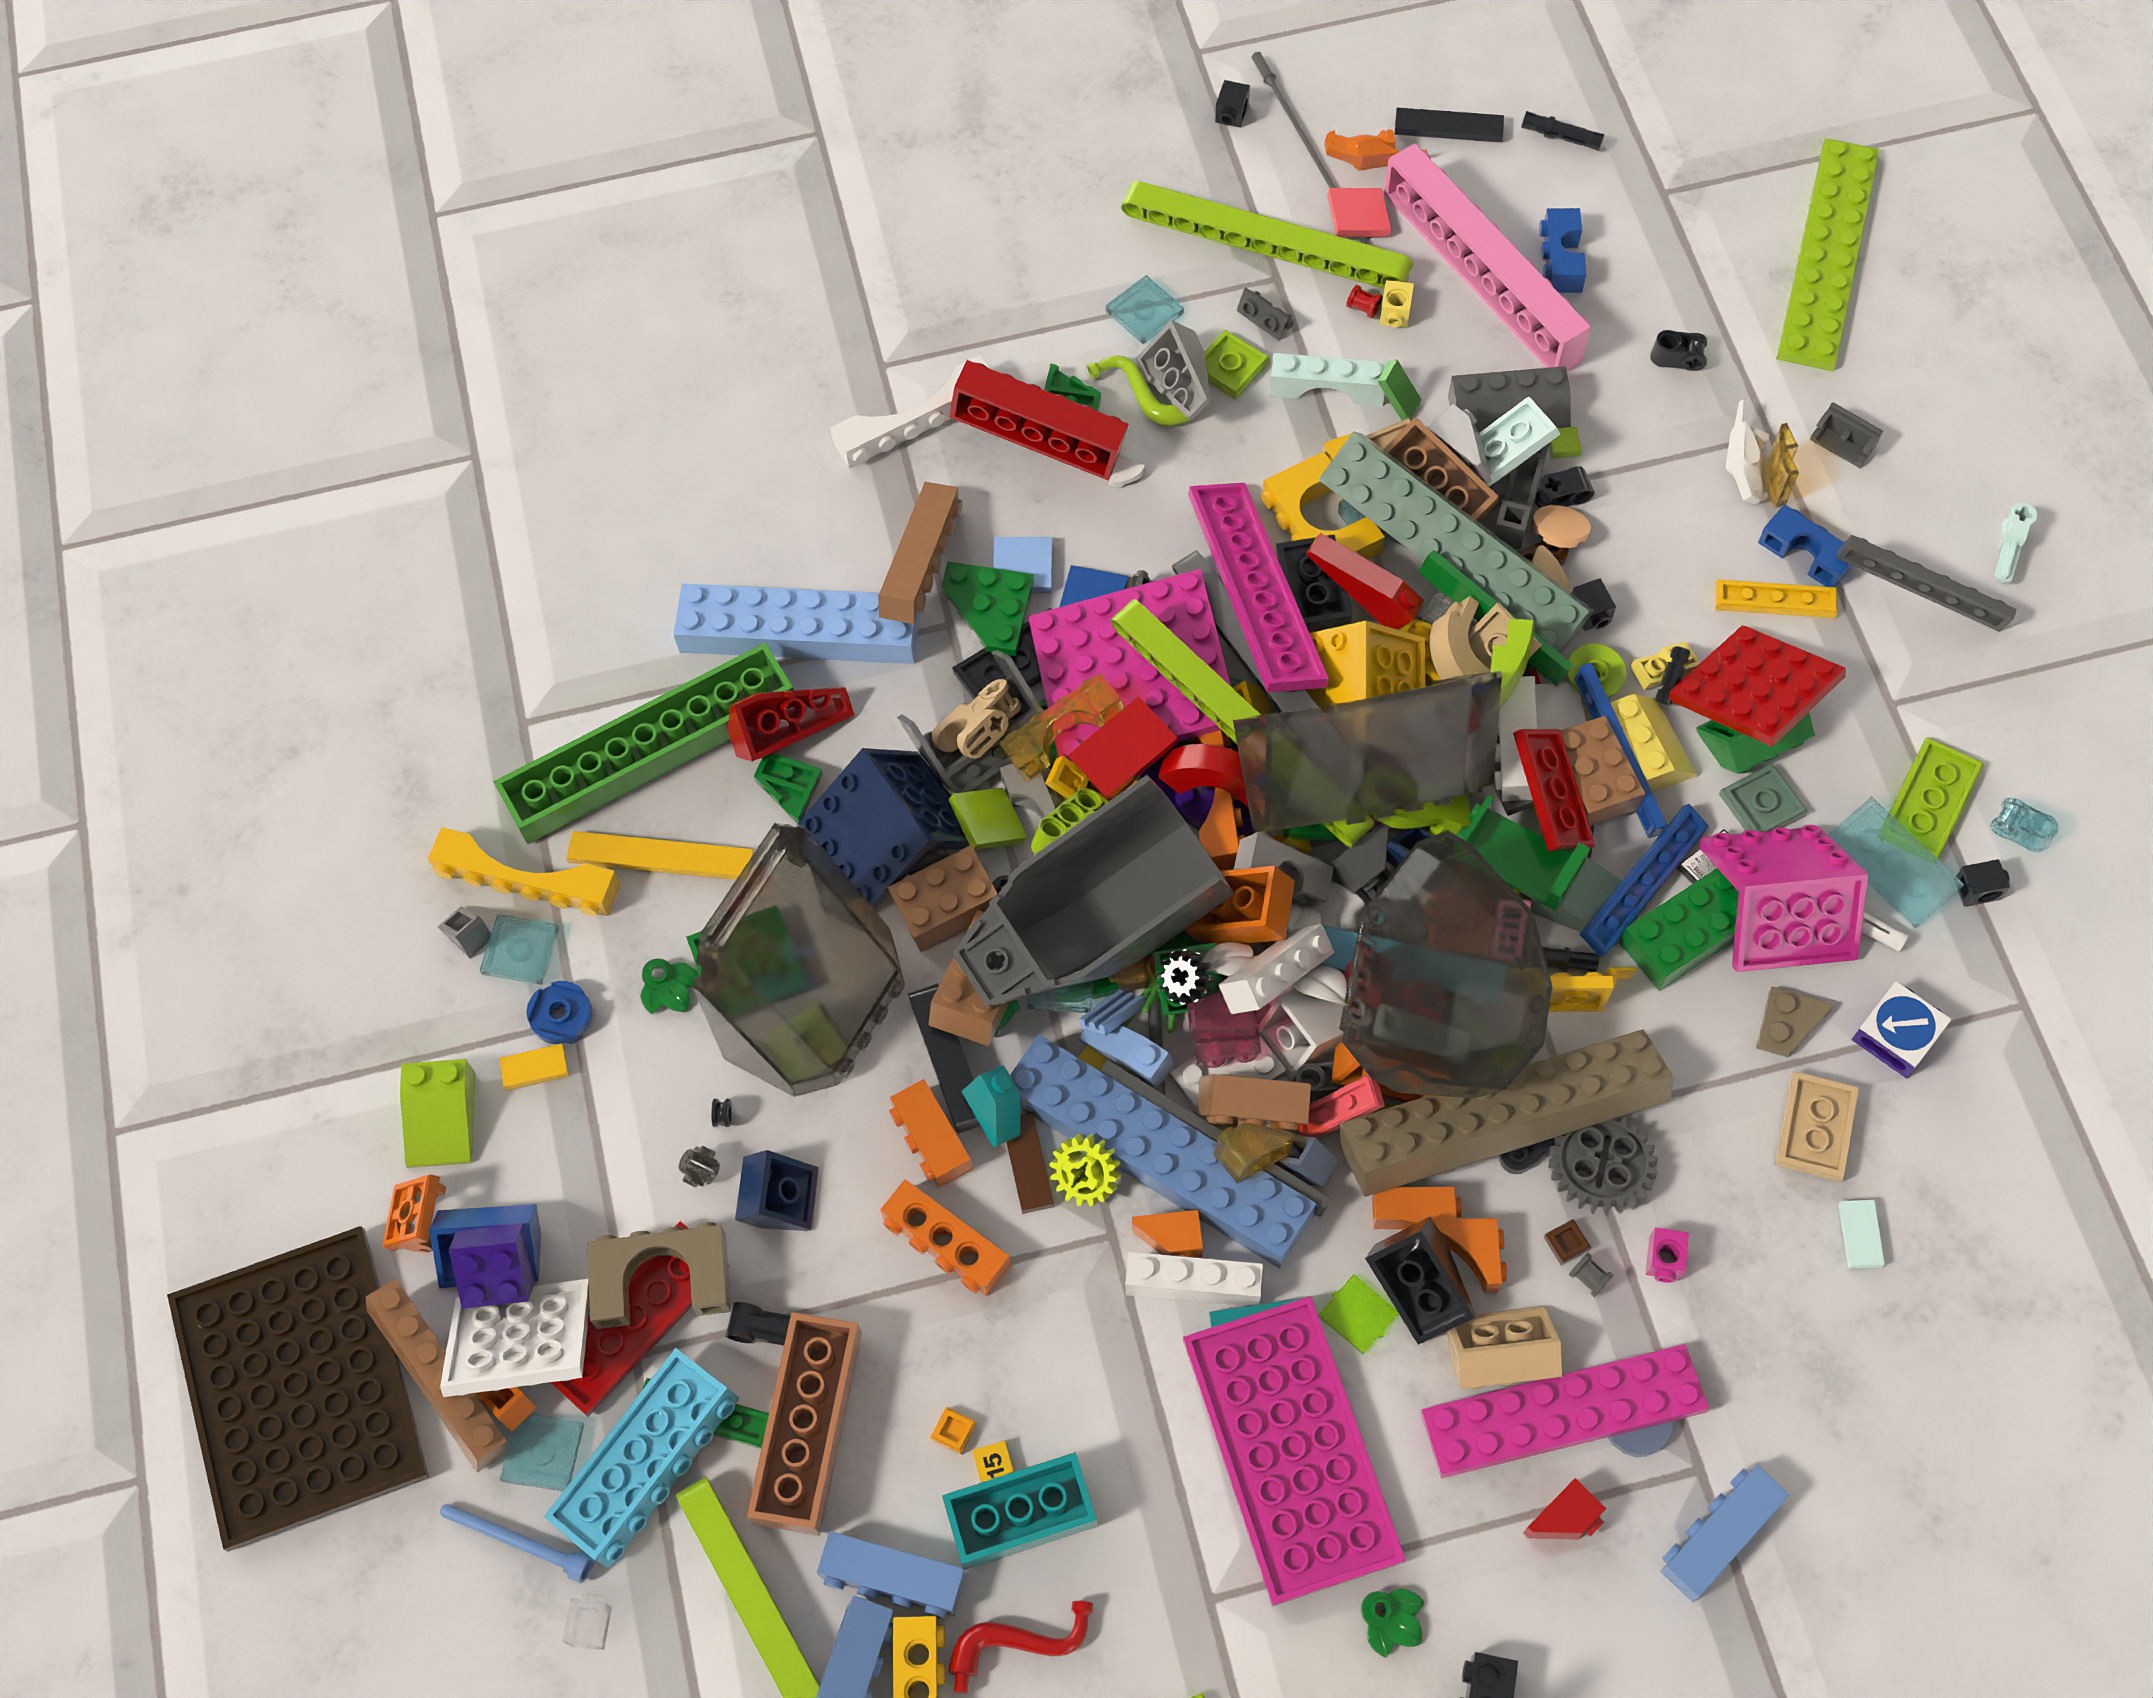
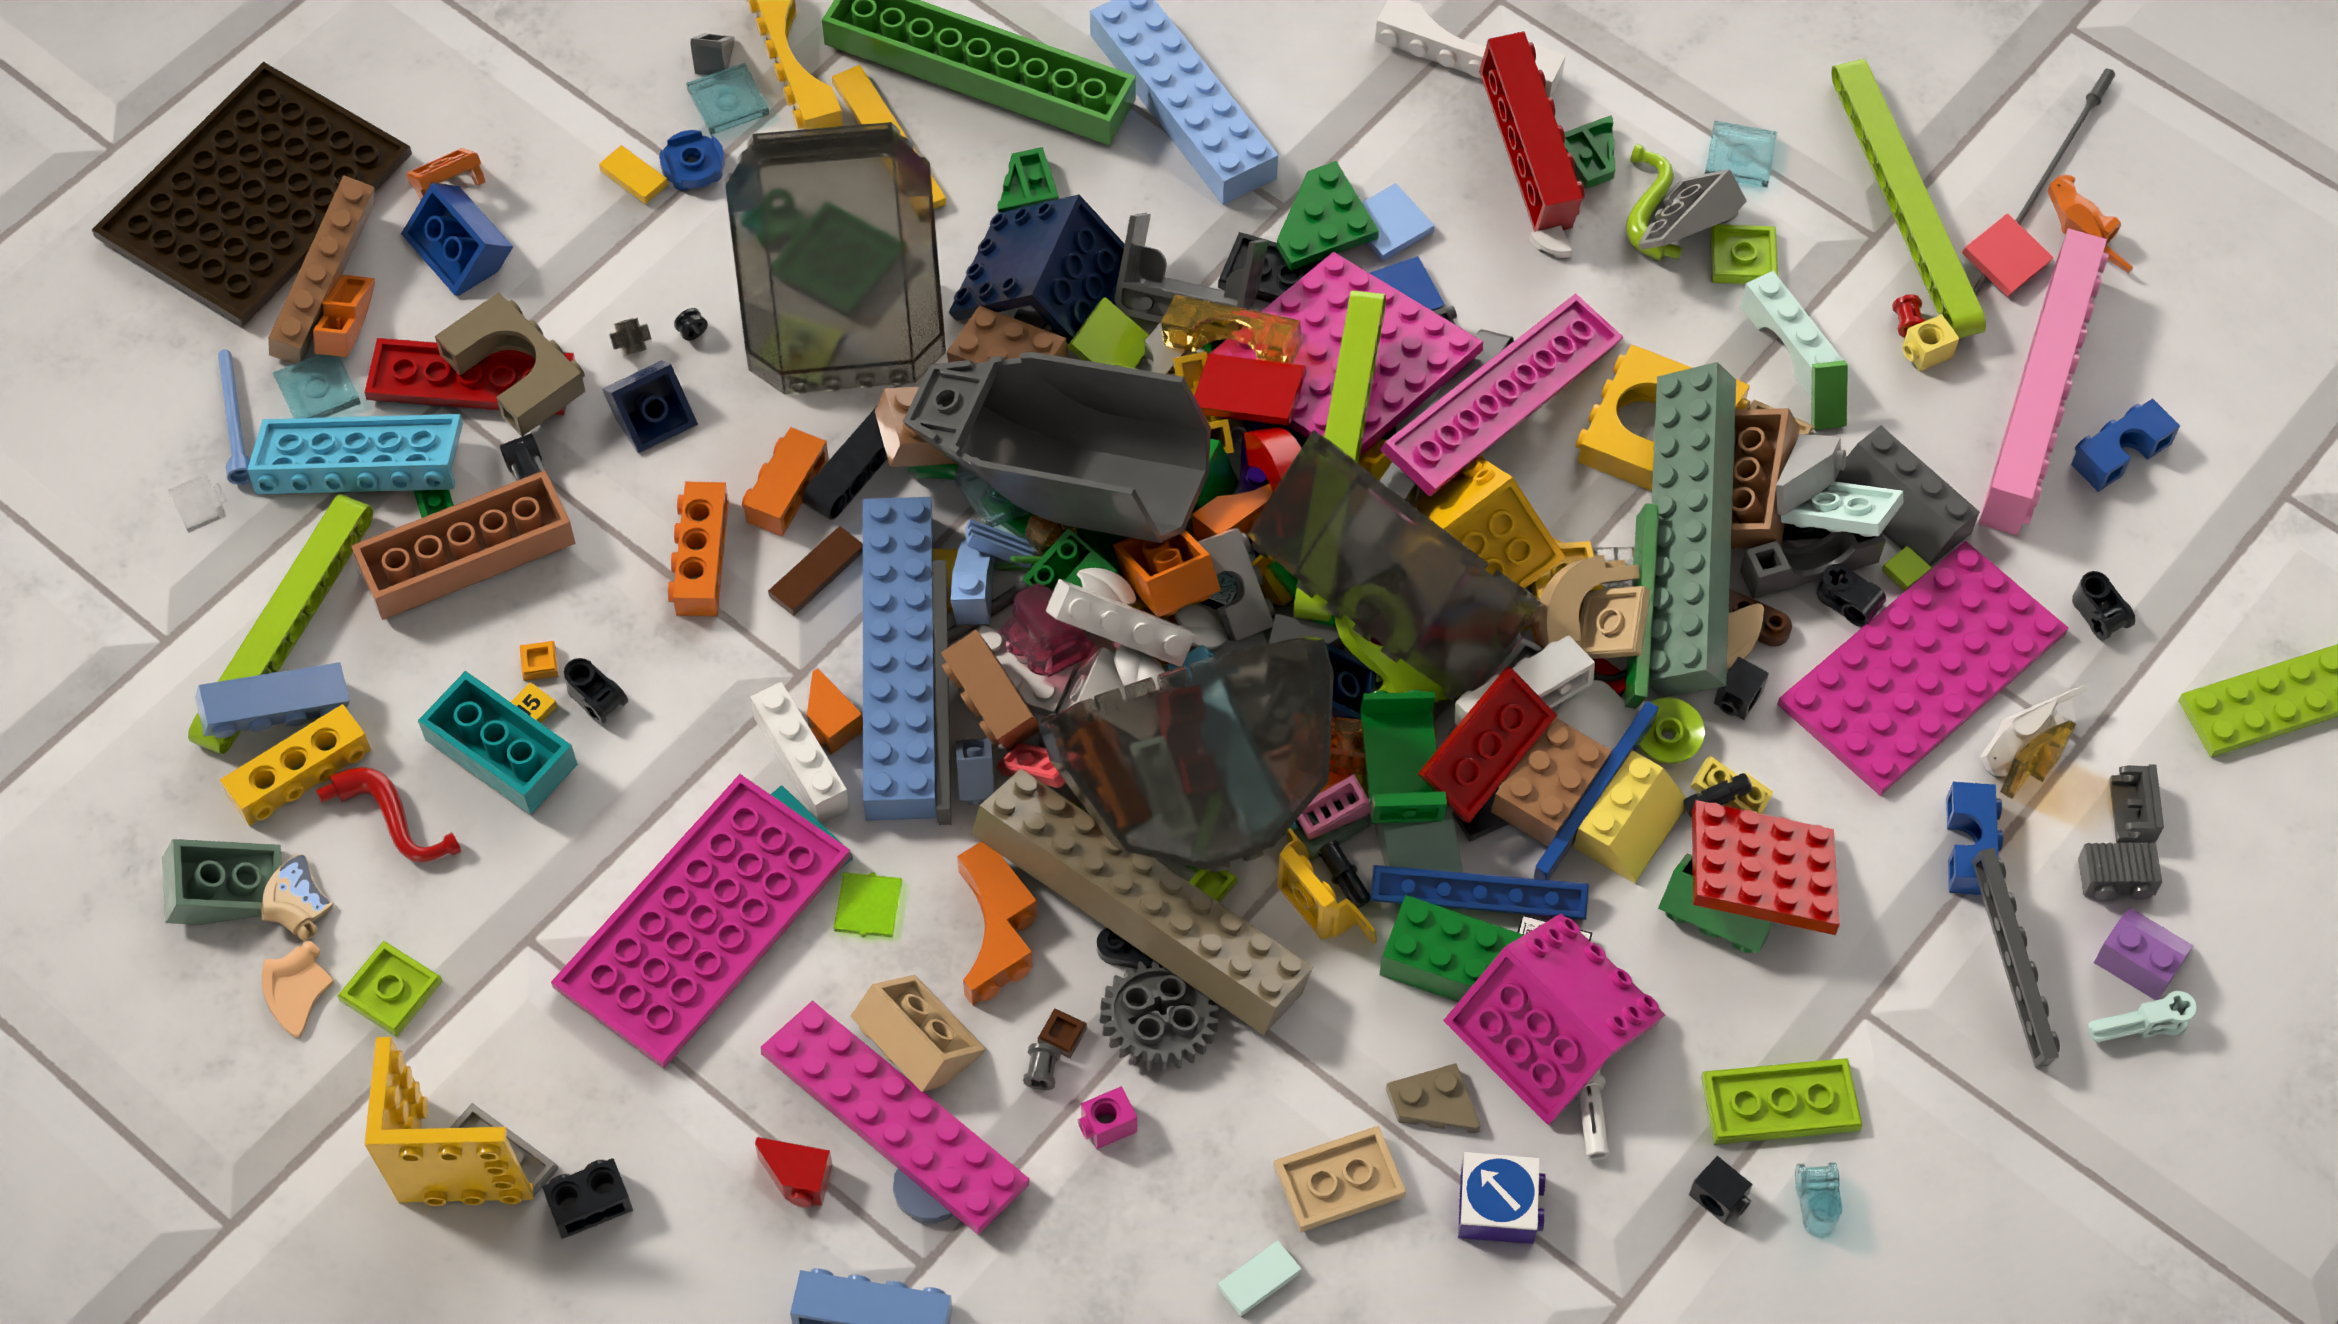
camera: 50 degrees right, 5 degrees down
(437, 1112) = (543, 134): lime slope -> none
(492, 1265) = (435, 245): dark purple brick -> none
(518, 1341) = (383, 297): white plate -> none
(784, 717) = (1074, 133): red wedge -> none
(892, 1574) = (383, 687): medium blue brick -> none
(919, 553) = (1319, 129): medium nougat brick -> none
(977, 724) = (1171, 271): tan piece -> none
(995, 1105) = (839, 504): teal slope -> none
(1021, 1403) = (595, 695): none -> black piece
(1098, 1172) = (835, 609): neon yellow gear -> none
(1174, 976) = (1058, 558): black gear -> none
(1232, 103) = (2031, 84): black brick -> none
(1251, 1149) = (941, 712): clear yellow slope -> none
(1263, 314) = (1823, 236): dark grey hinge -> none
(1317, 595) = (1552, 446): black slope -> none
(1371, 585) = (1591, 486): red wedge -> none
(1396, 1623) = (605, 1091): green plate -> none
(1422, 1280) = (928, 923): black slope -> none
(1449, 124) = (2184, 272): black tile -> none
(1514, 656) = (1583, 629): lime slope -> none
(1561, 526) = (1803, 613): light nougat tile -> none
(1562, 130) = (2263, 355): black pin -> none
(1649, 487) = (1922, 667): none -> dark pink plate
(1763, 801) = (1654, 953): sand green tile -> none
(1776, 598) = (1893, 845): yellow tile -> none
(1890, 479) = (2120, 870): none -> dark grey brick
(1896, 862) = (1678, 1099): clear light blue tile -> none
(1962, 508) = (2143, 953): none -> medium lavender slope

